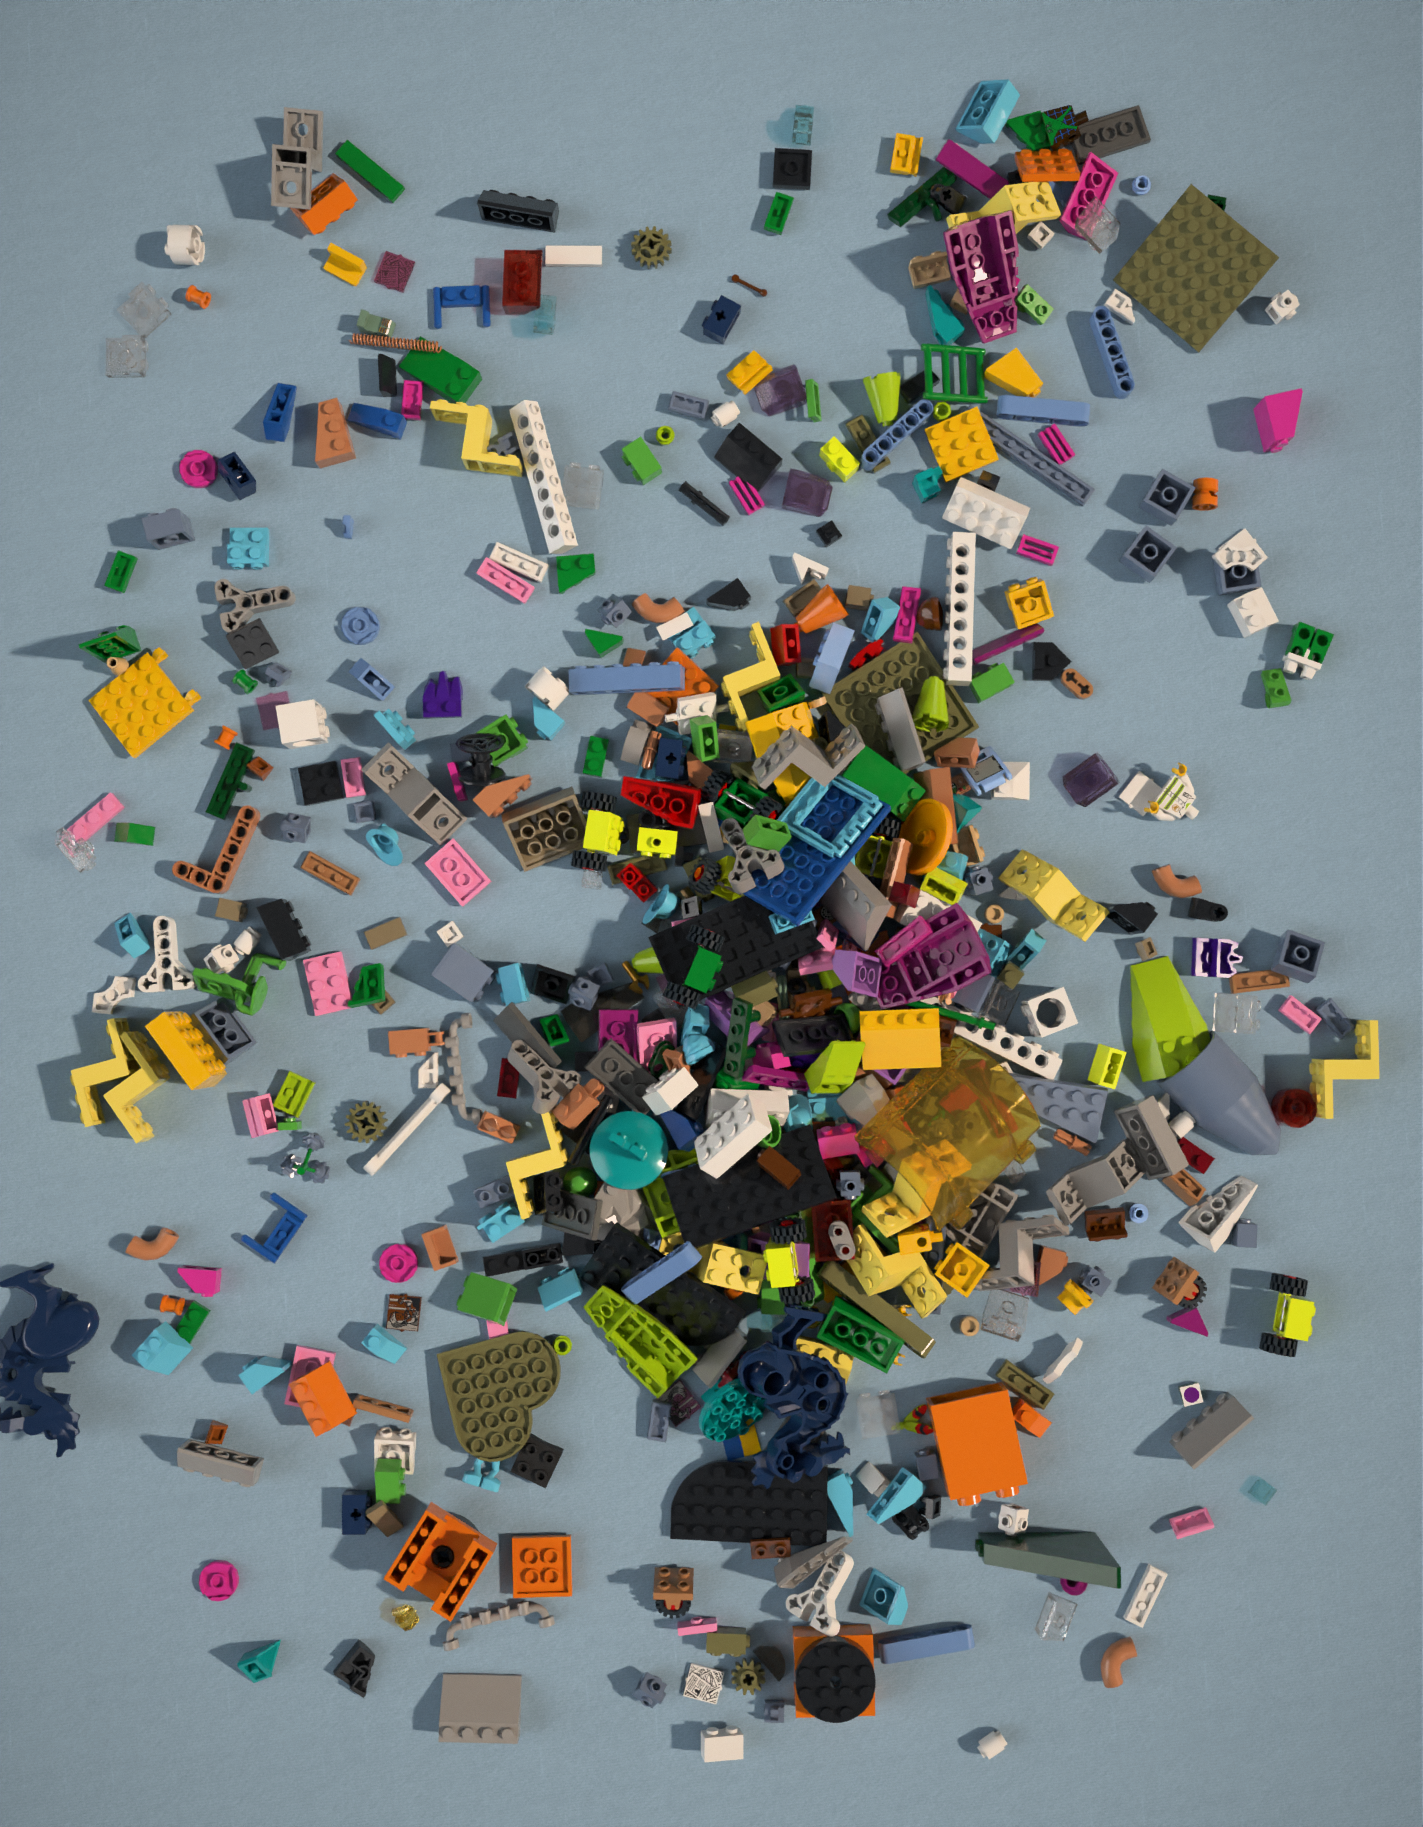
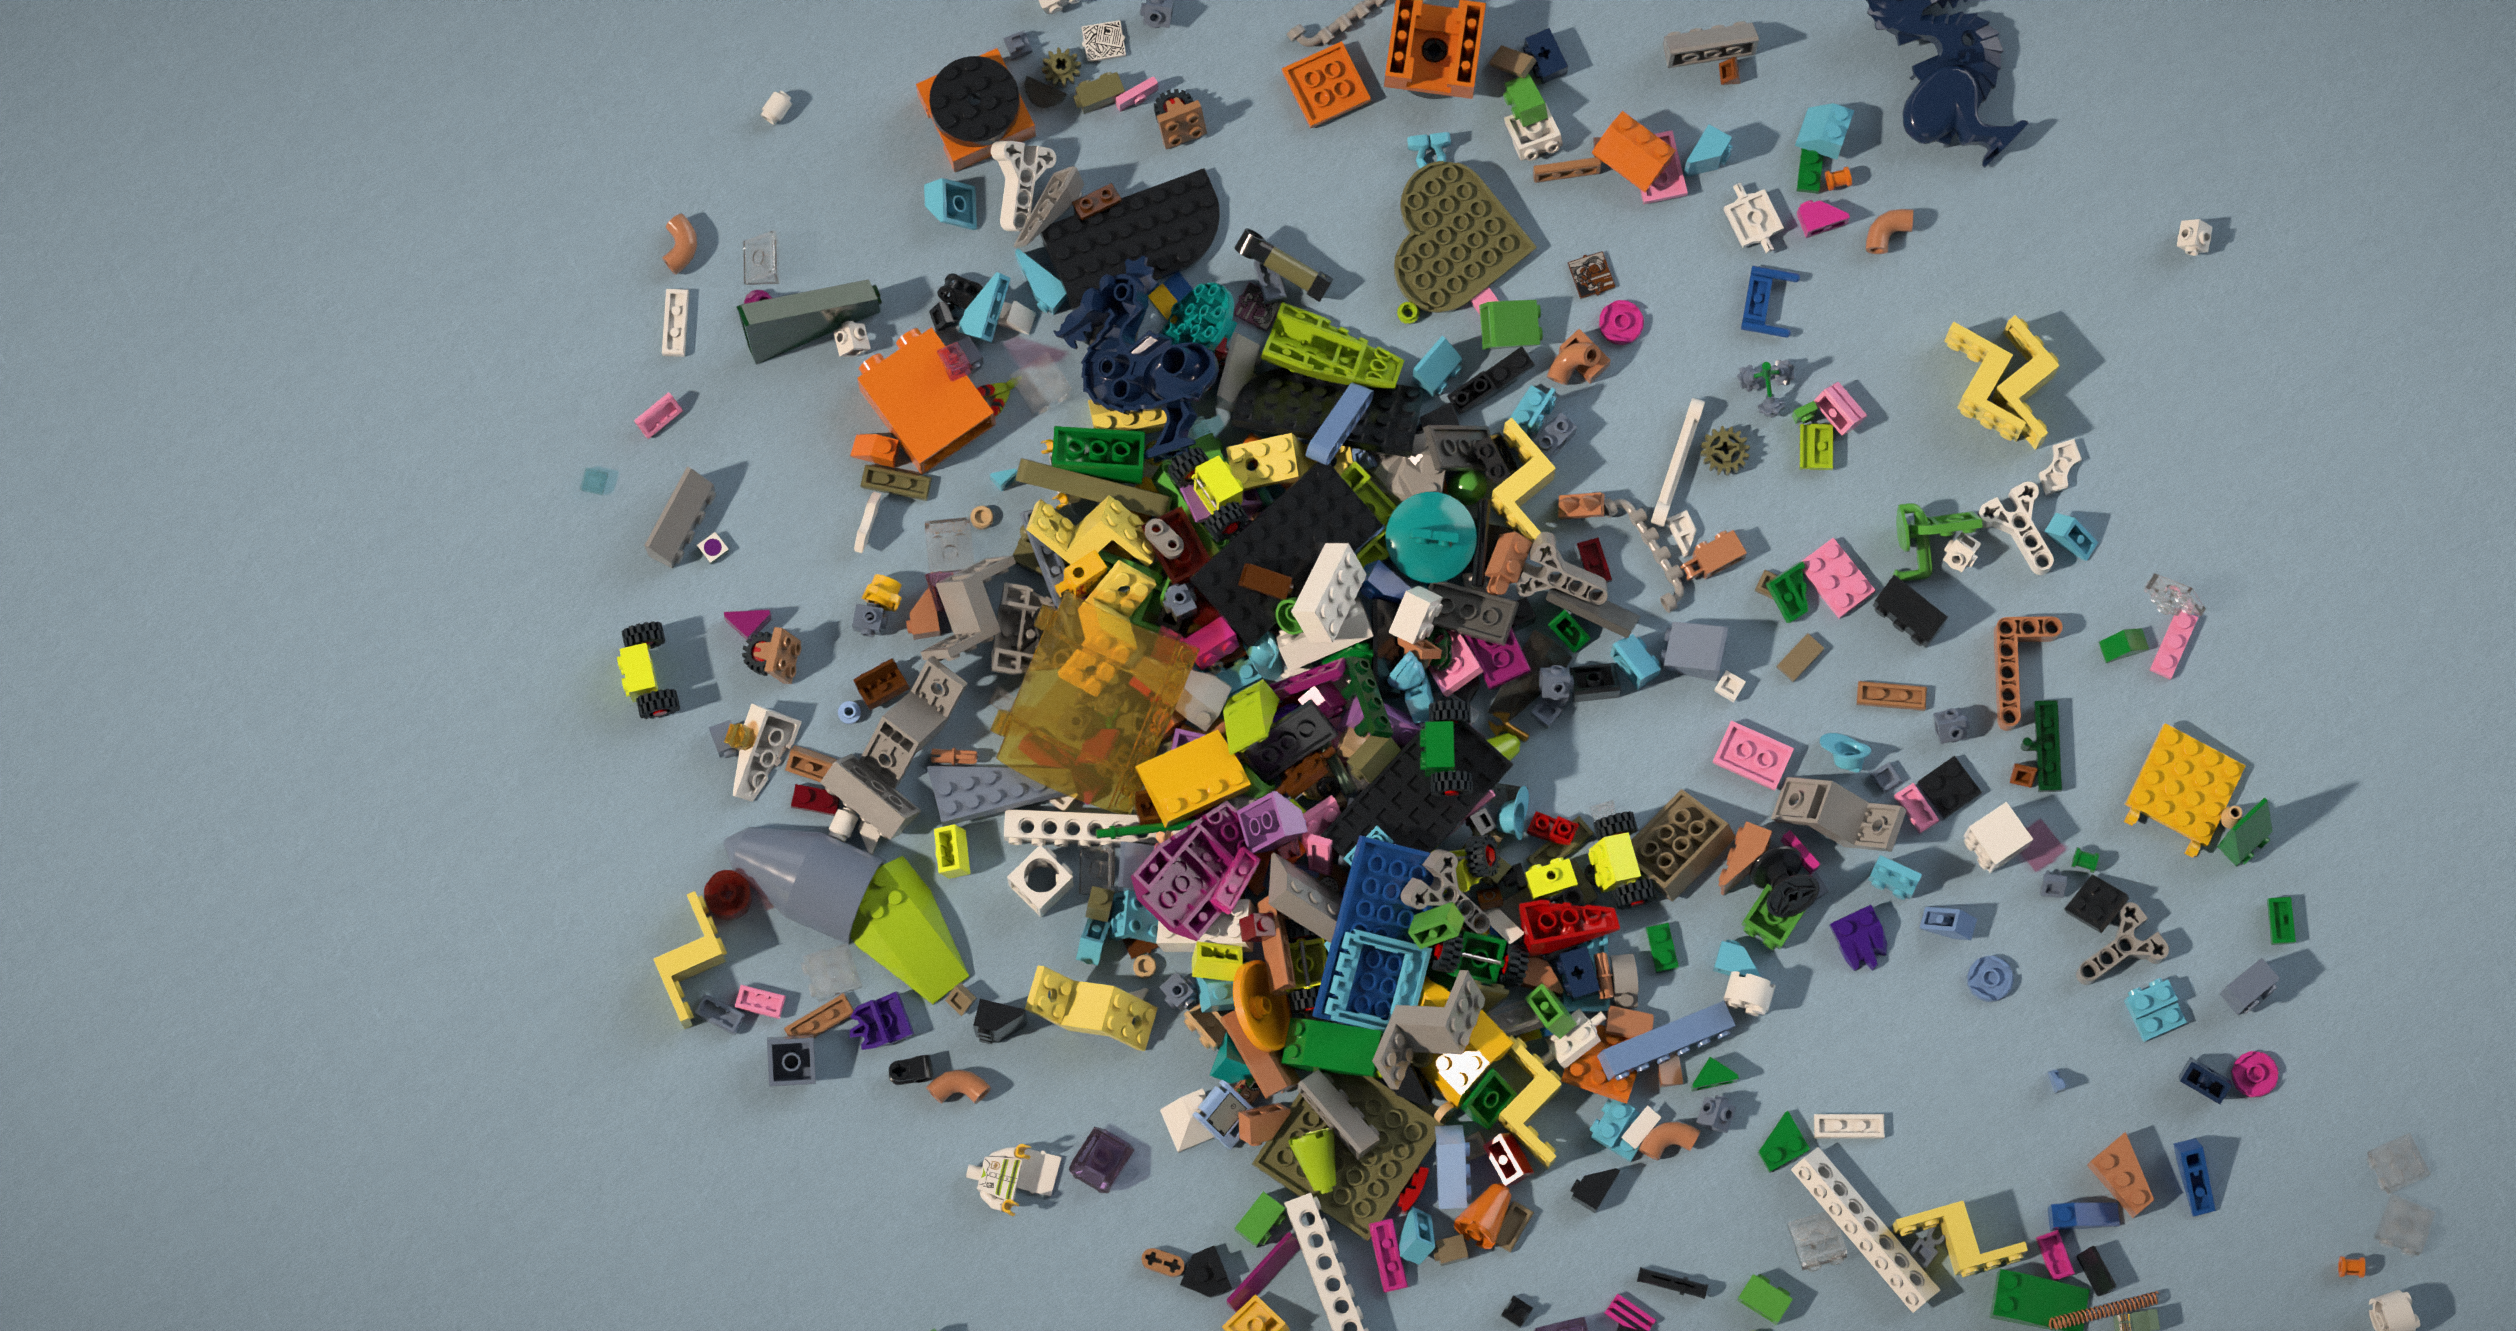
camera: 155 degrees right, 10 degrees down
(187, 1050) = (1946, 437): yellow slope -> none
(223, 1030) = (1925, 476): sand blue slope -> none
(225, 737) = (2076, 790): orange bush -> none
(231, 910) = (1977, 609): dark tan brick -> none
(247, 941) = (1944, 584): white brick -> none
(254, 1302) = (1753, 218): none -> white plate
(384, 1344) = (1596, 233): medium azure slope -> none
(453, 1249) = (1570, 359): none -> nougat cylinder
(505, 580) = (1853, 1097): bright pink plate -> none
(537, 1460) = (1380, 186): black brick -> none
(658, 1451) = (1255, 247): none -> piece
(709, 849) = (1489, 898): none -> reddish brown tile
(804, 565) = (1529, 1260): white slope -> none
(926, 1643) = (888, 177): medium blue beam -> none
(930, 614) = (1360, 1266): reddish brown hat -> none
(940, 1349) = (1003, 478): none -> medium azure slope
(946, 1462) = (954, 361): none -> clear pink slope
(961, 1269) = (1023, 565): yellow plate -> none
(1238, 1228) = (740, 737): none -> clear yellow piece

